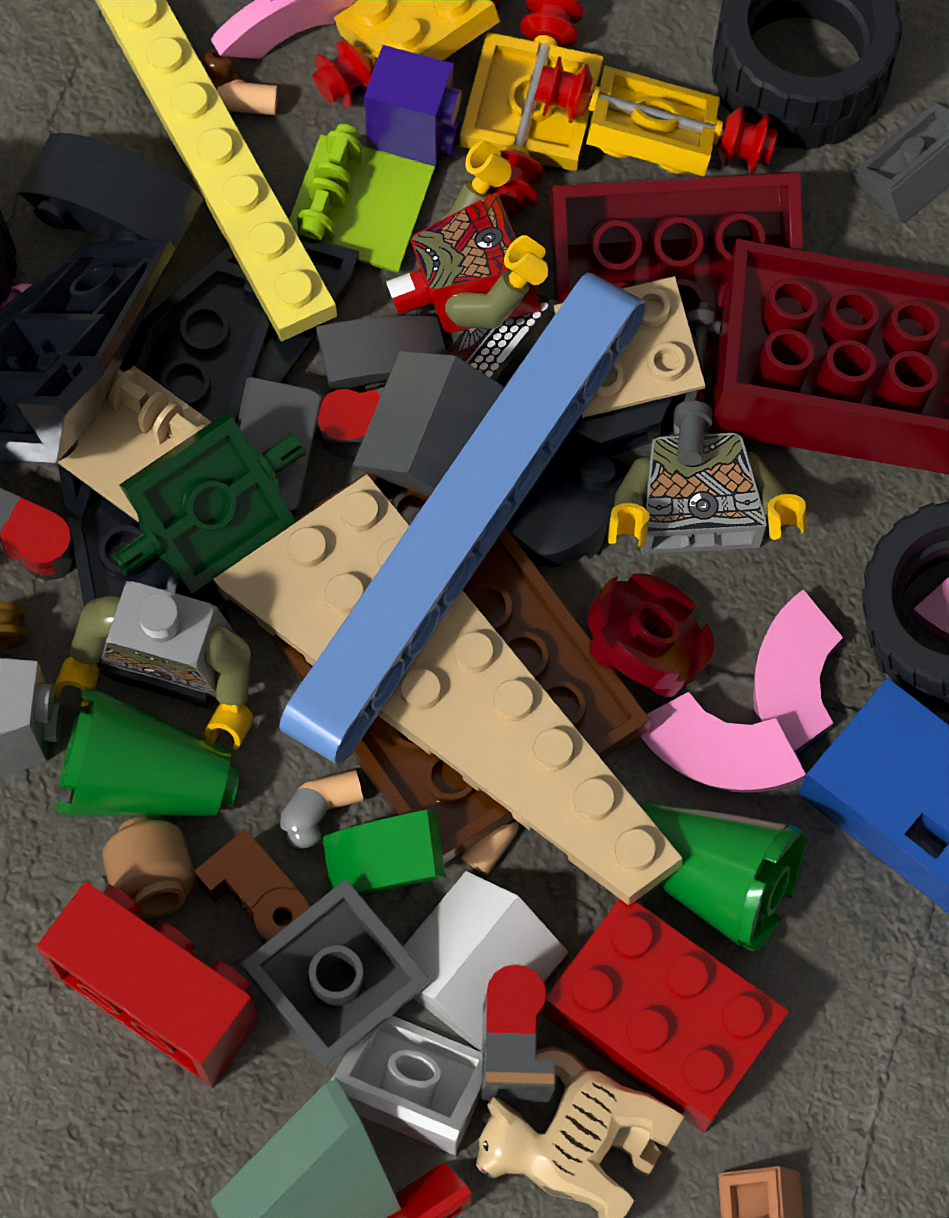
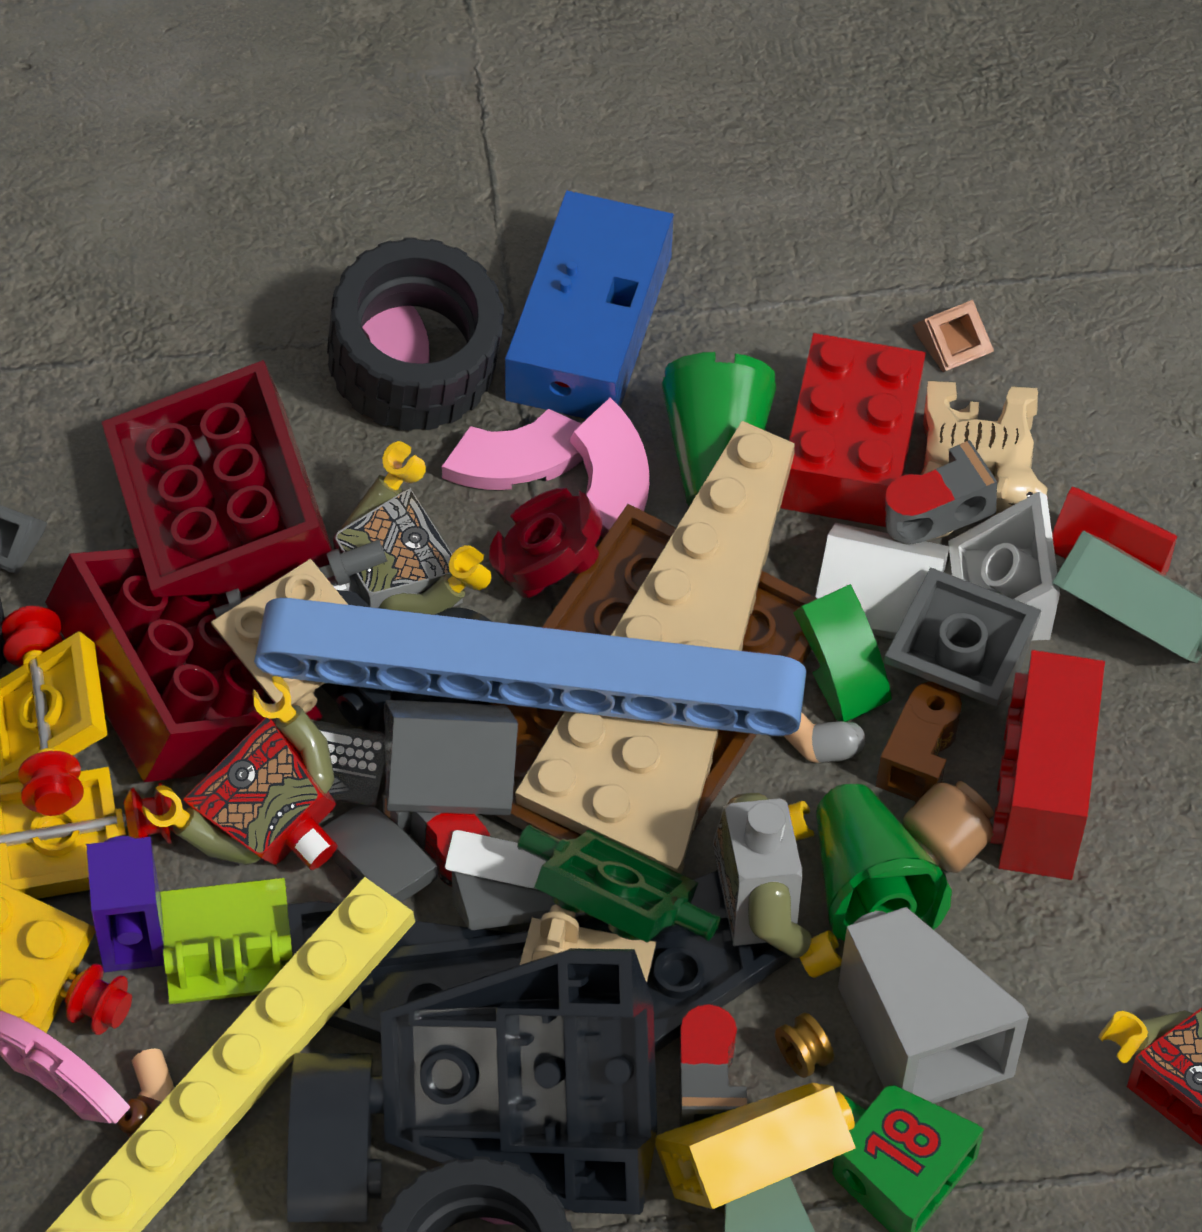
camera: 115 degrees left, 15 degrees down
(315, 424) = (492, 859): none -> white sticker

